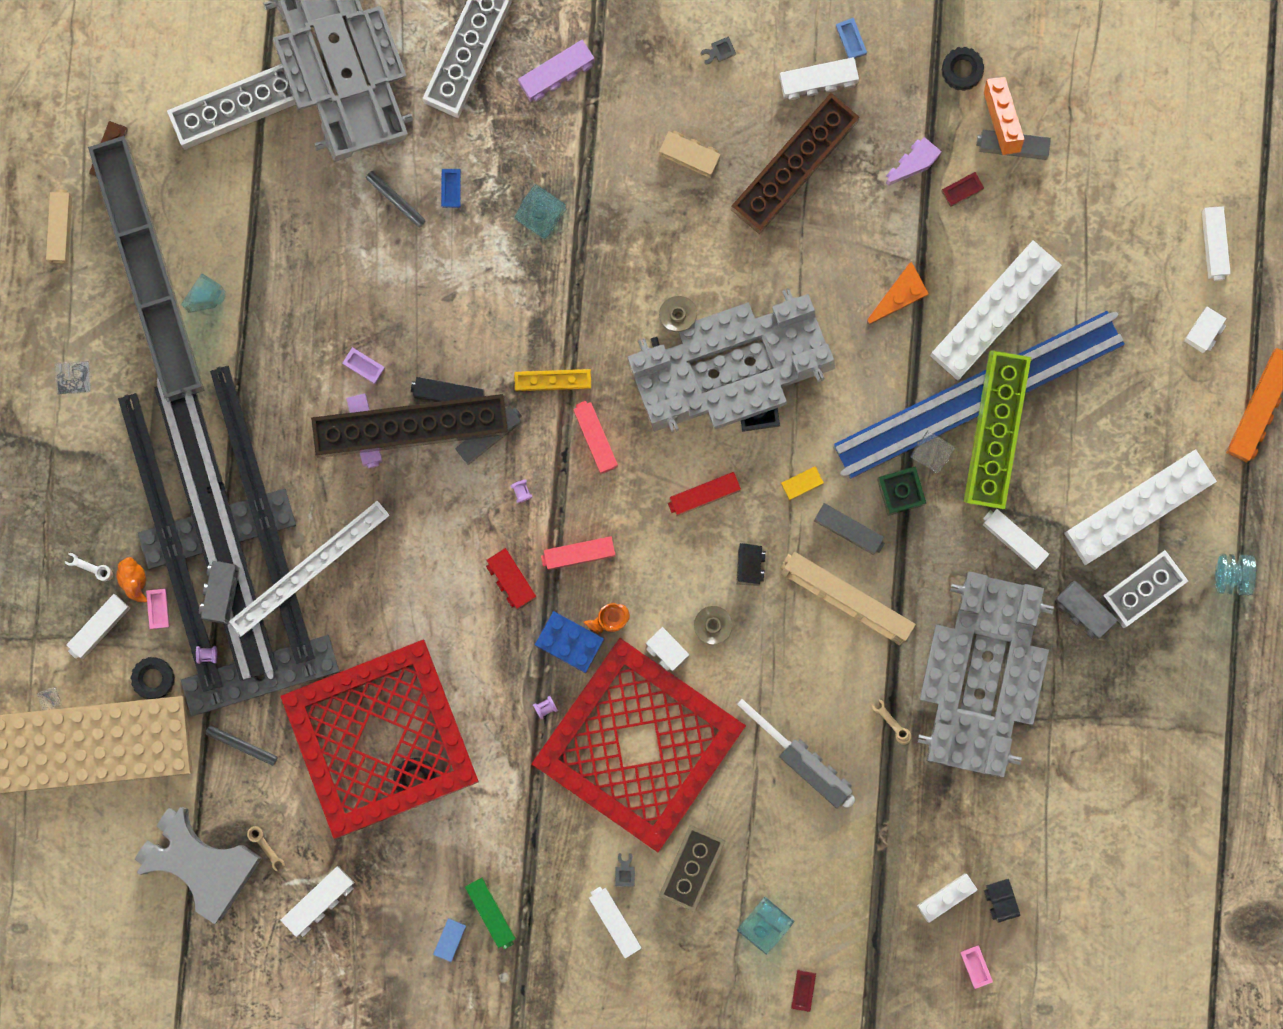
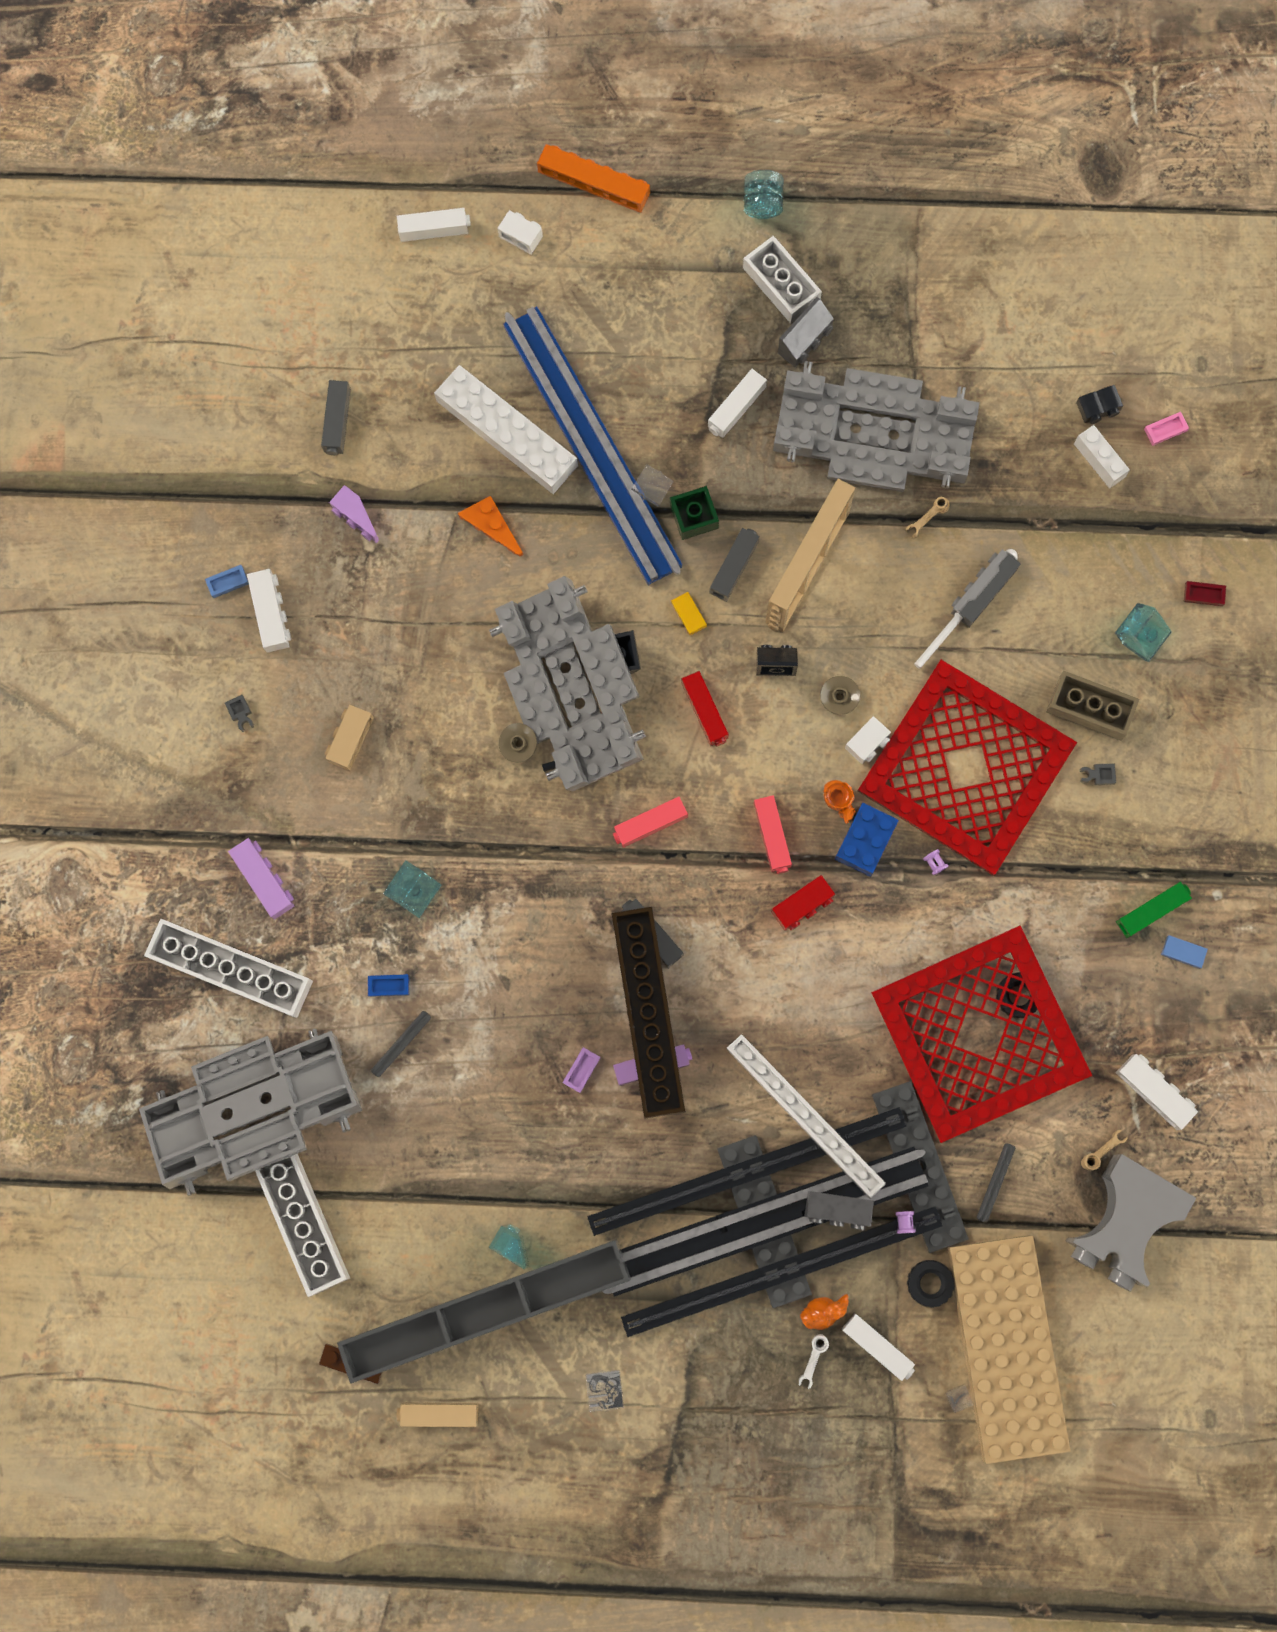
camera: 85 degrees left, 5 degrees down
(157, 609) = (854, 1282): bright pink tile -> none
(442, 391) = (607, 980): black brick -> none
(521, 491) = (709, 896): lavender bush -> none
(552, 380) = (590, 870): yellow tile -> none
(614, 922) = (1152, 782): white brick -> none
(795, 163) = (358, 629): reddish brown brick -> none
(962, 54) = (254, 455): black tyre -> none
(962, 189) = (382, 467): dark red tile -> none
(997, 429) = (629, 419): lime brick -> none
(1003, 116) = (307, 424): brick -> none
(1140, 507) = (700, 287): white brick -> none

